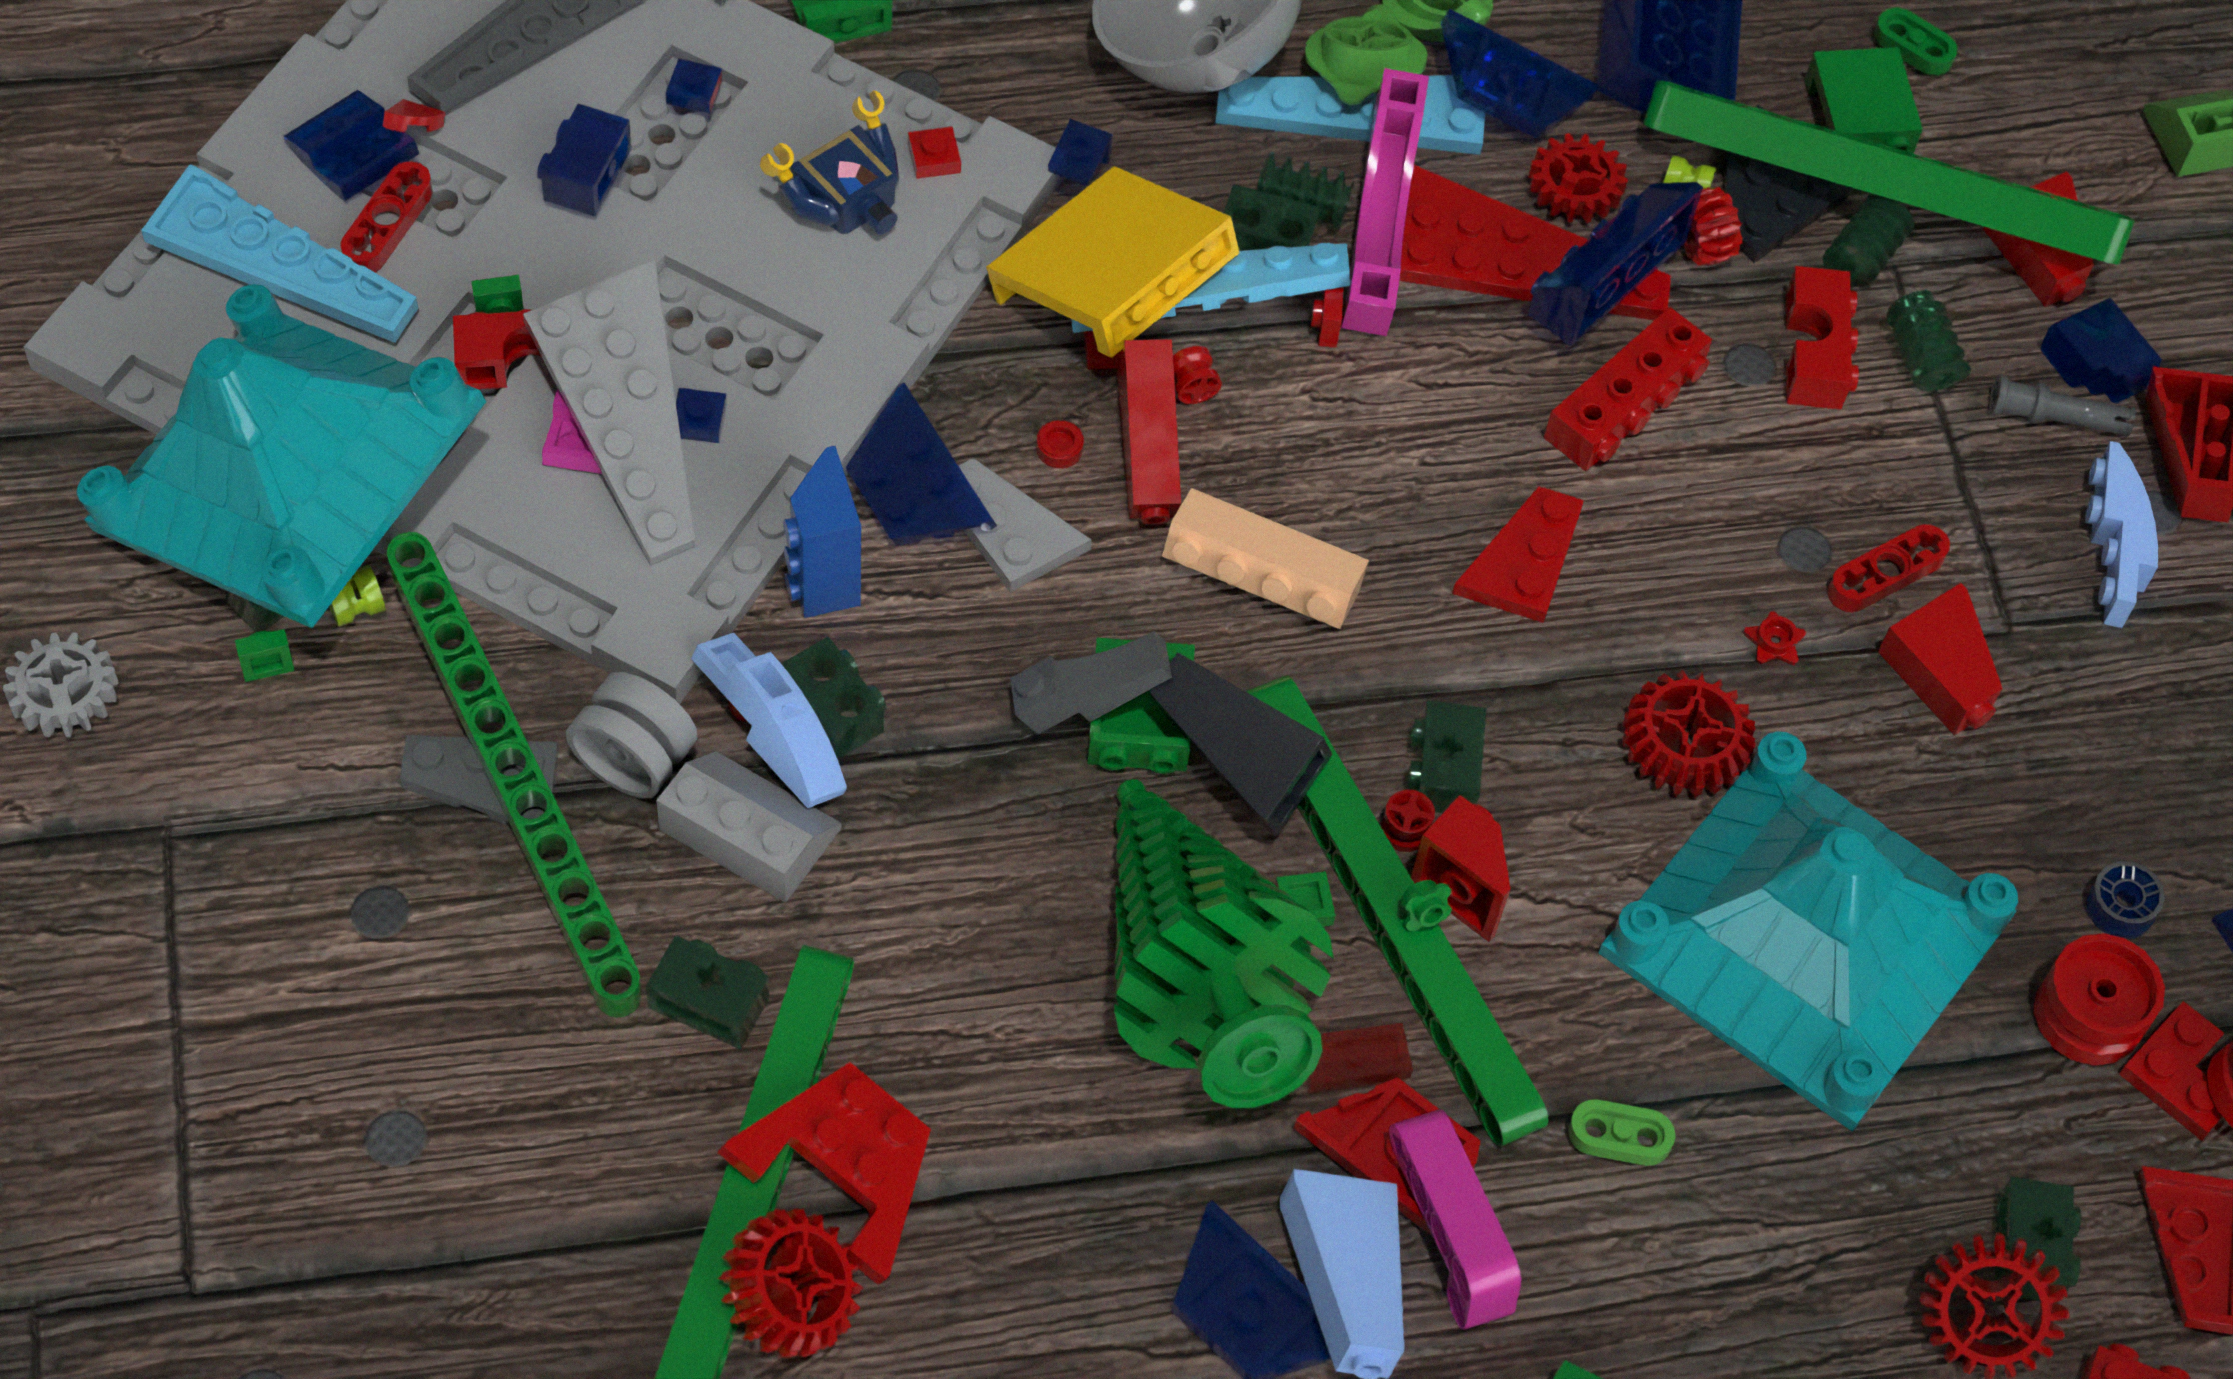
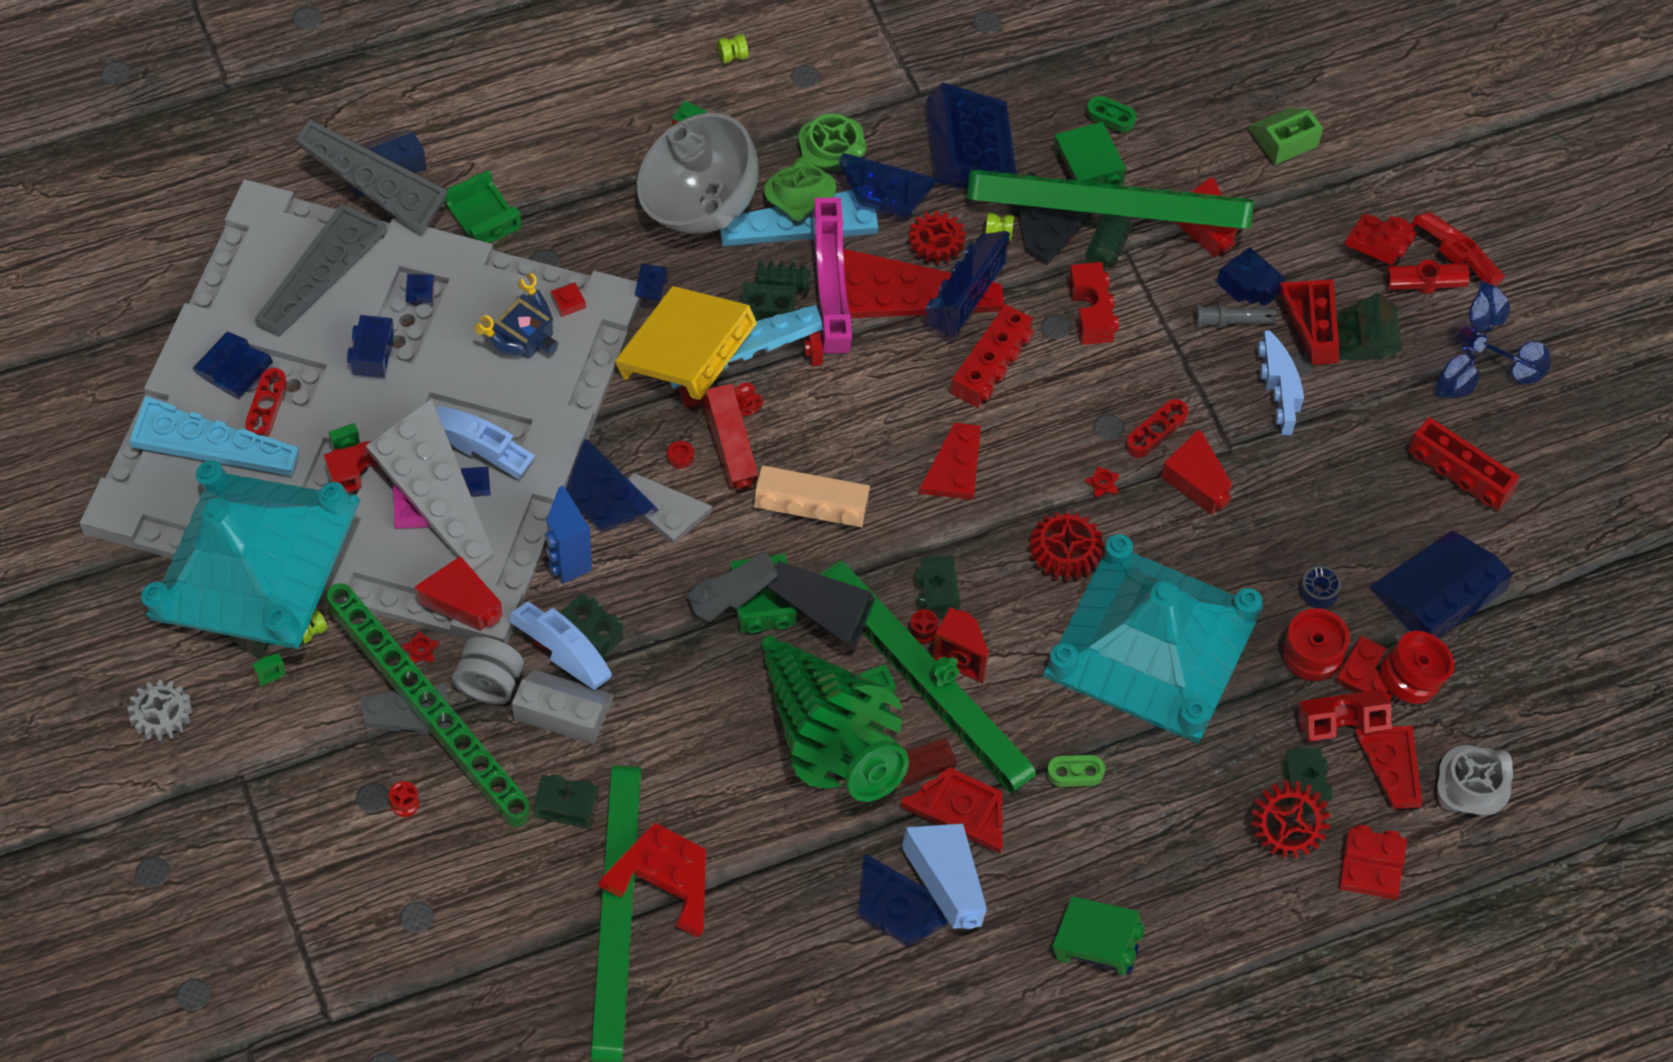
camera: 10 degrees left, 0 degrees up
(412, 113) = (264, 339): red tile -> none
(427, 913) = (399, 794): none -> red wheel
(533, 663) = (424, 642): none -> red plate
(617, 598) = (460, 596): none -> red slope
(732, 347) = (485, 439): none -> light blue slope
(771, 1303) = (659, 939): red gear -> none
(1480, 1261) = (1000, 833): dark pink beam -> none
(1714, 229) = (1021, 252): red gear -> none
(1927, 341) = (1153, 293): clear green piece -> none
(2168, 1136) = (1363, 709): none -> red arch

